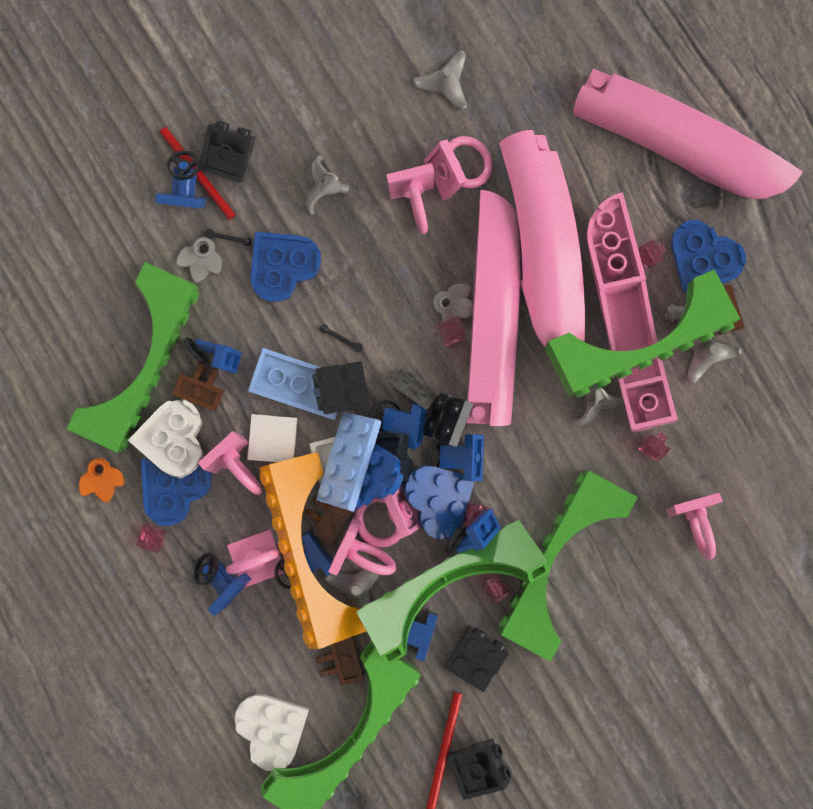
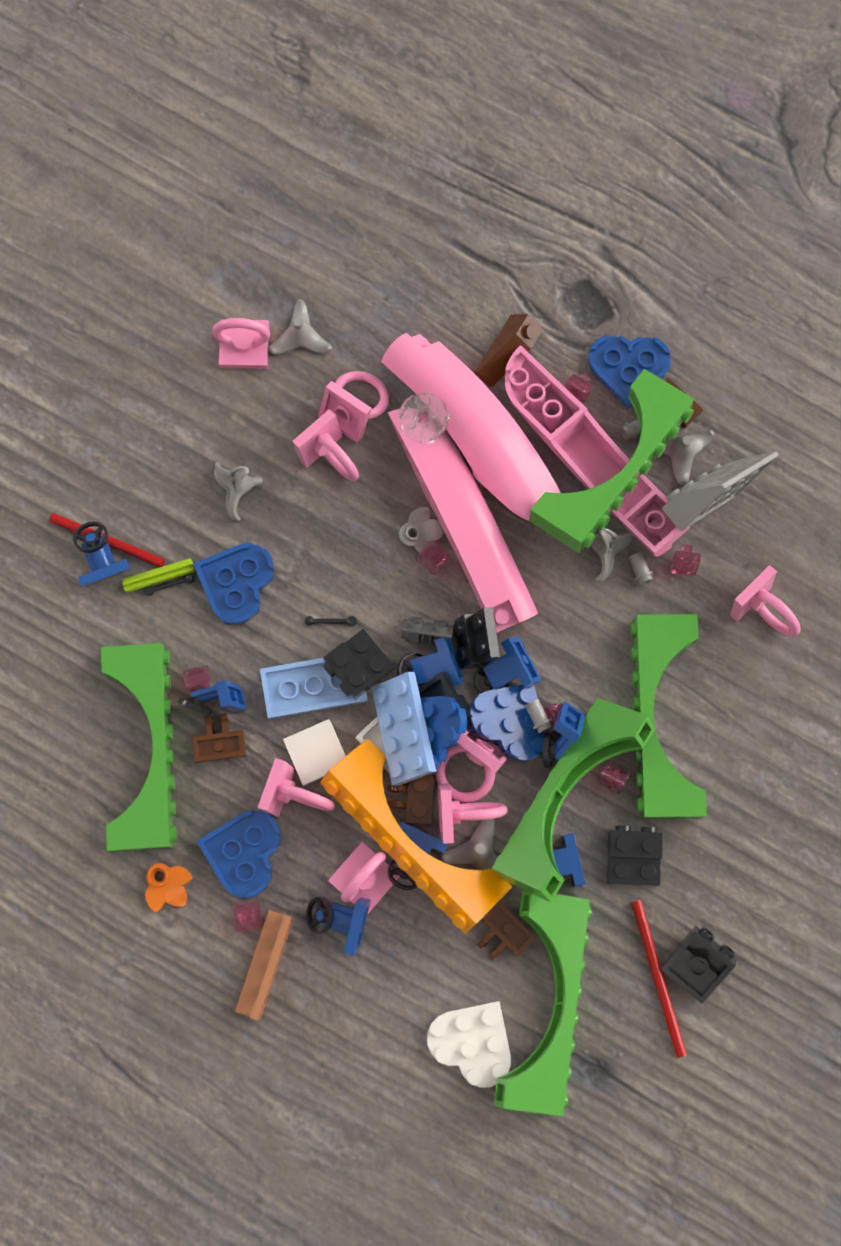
camera: 35 degrees left, 10 degrees down
(144, 582) = (264, 965): none -> nougat fence
(170, 438) = (216, 804): white plate -> none
(199, 262) = (154, 622): light grey plate -> none
(210, 327) = (197, 676): none -> clear pink tile
(223, 225) = (158, 575): none -> lime axle
(226, 151) = (125, 504): black plate -> none
(394, 63) = (242, 343): none -> bright pink tile
(462, 509) = (538, 716): none -> light grey pin
(494, 208) = (410, 418): none -> clear plate
(614, 432) = (640, 568): none -> light grey pin
(626, 178) = (517, 331): none -> reddish brown slope
(684, 136) = (547, 269): bright pink slope -> none
(712, 403) = (714, 490): none -> light grey slope

